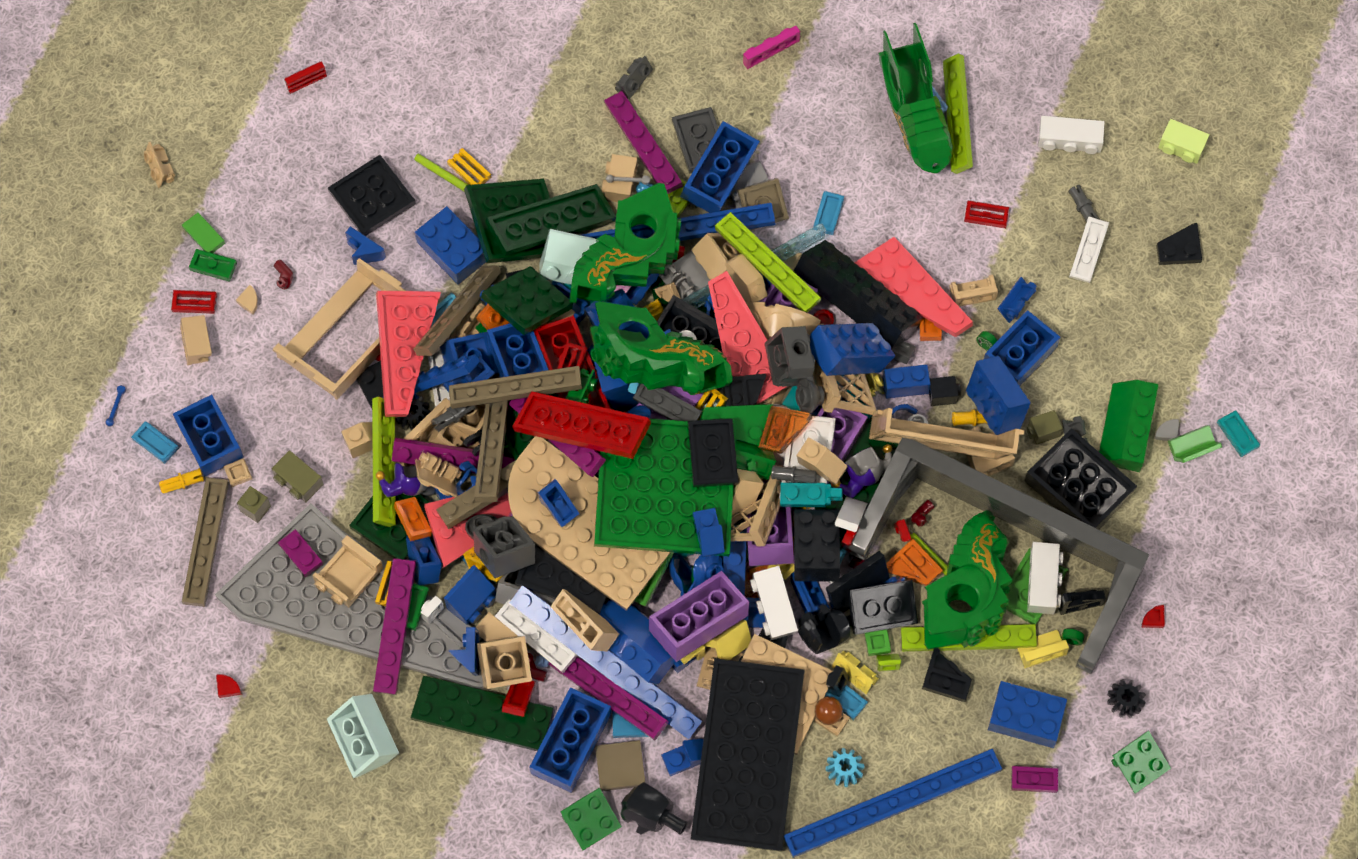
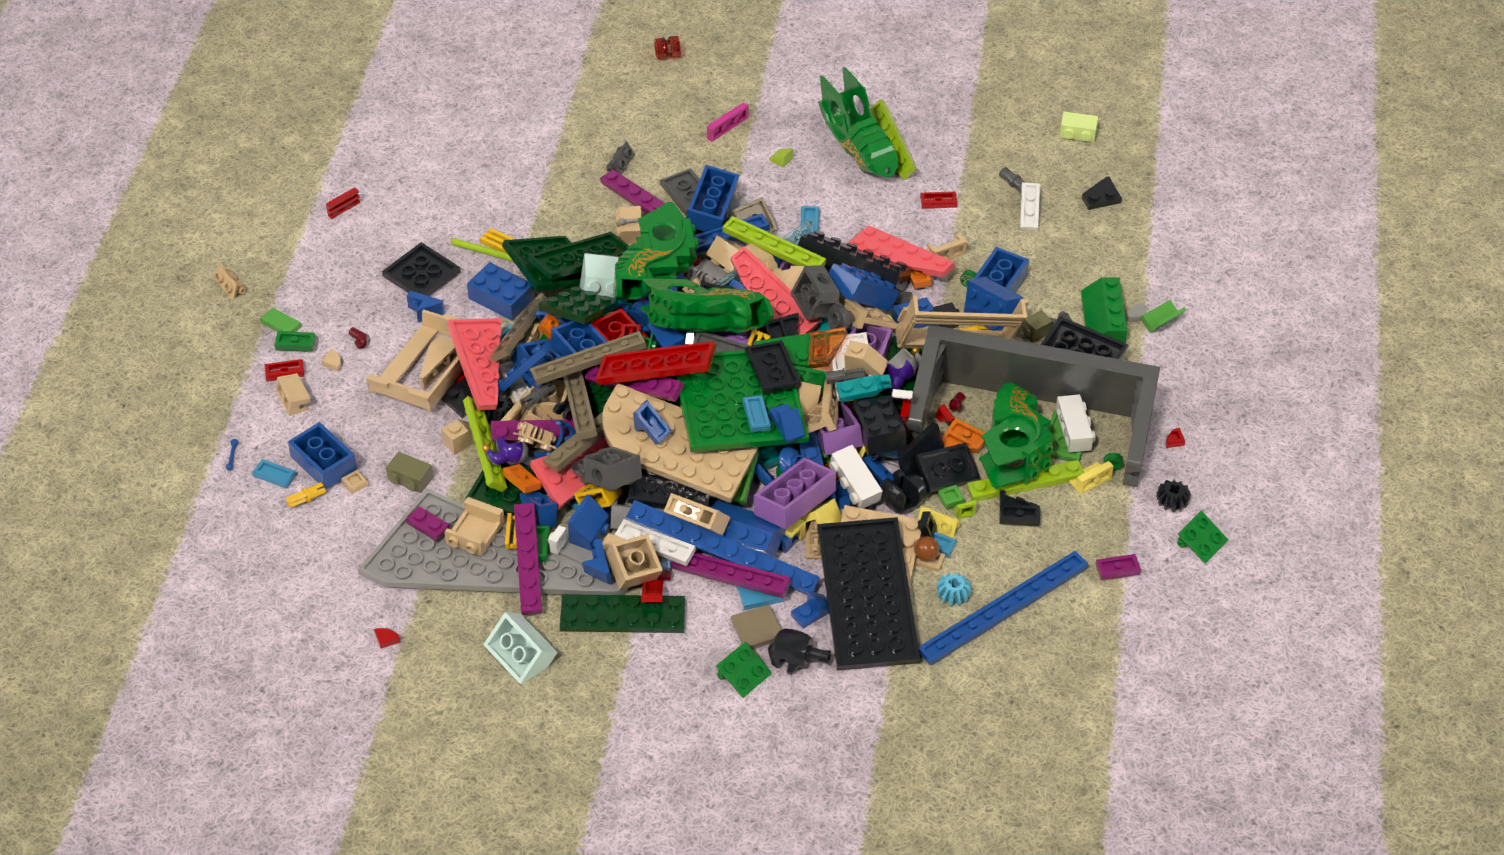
camera: 15 degrees left, 20 degrees down
(205, 542) = (338, 535): dark tan plate -> none
(253, 504) = (376, 498): olive brick -> none
(359, 329) = (438, 358): none -> tan slope
(570, 740) = (708, 613): blue brick -> none
(677, 513) = (756, 413): none -> dark azure tile
(822, 111) = (782, 156): none -> lime slope
(1016, 299) = (983, 247): blue hinge -> none
(1027, 714) = (1095, 521): blue brick -> none
(1071, 134) = (988, 137): white brick -> none
(1081, 600) = (1110, 434): black wing -> none
(1238, 433) = (1194, 305): teal tile -> none

